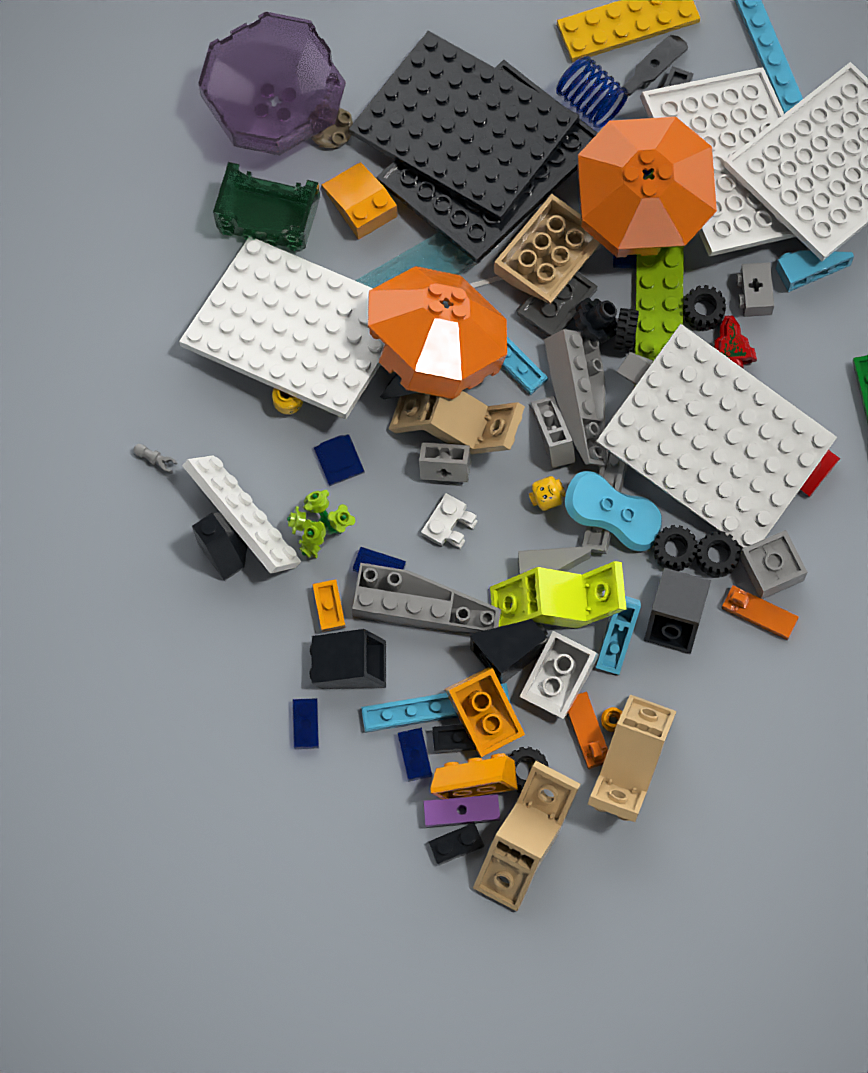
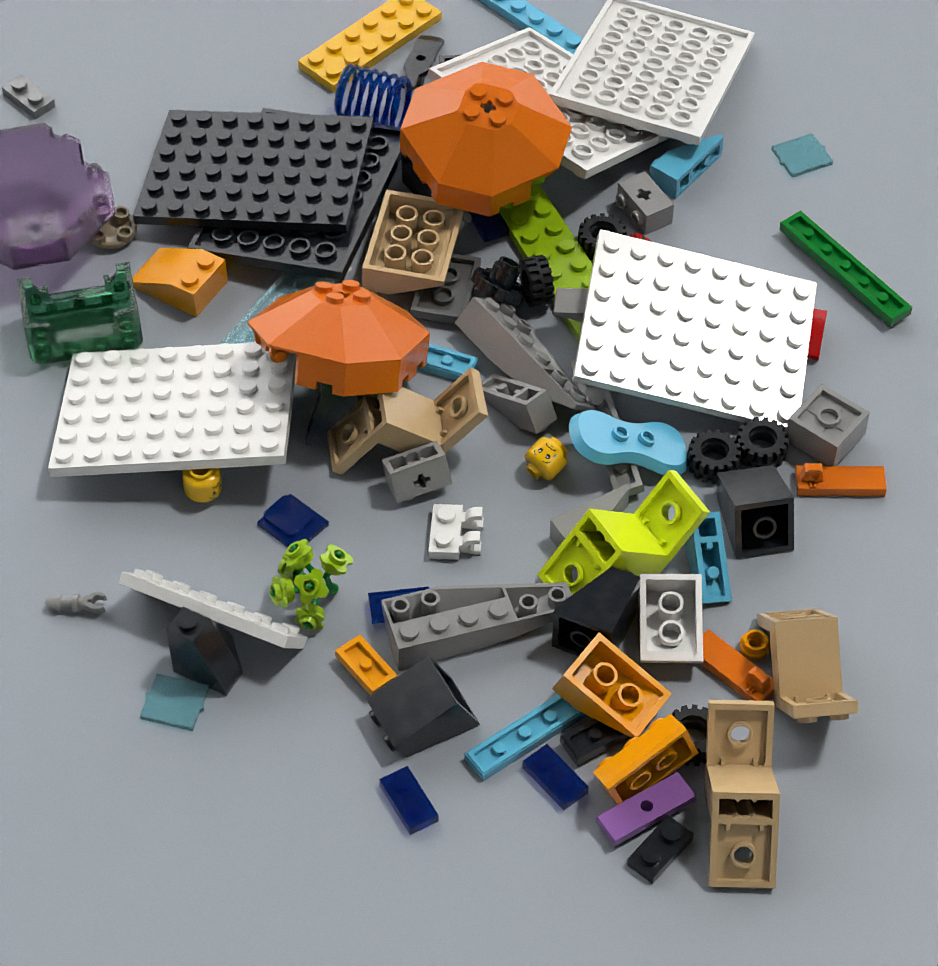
camera: 30 degrees left, 20 degrees down
(186, 569) = (174, 702): none -> clear light blue piece

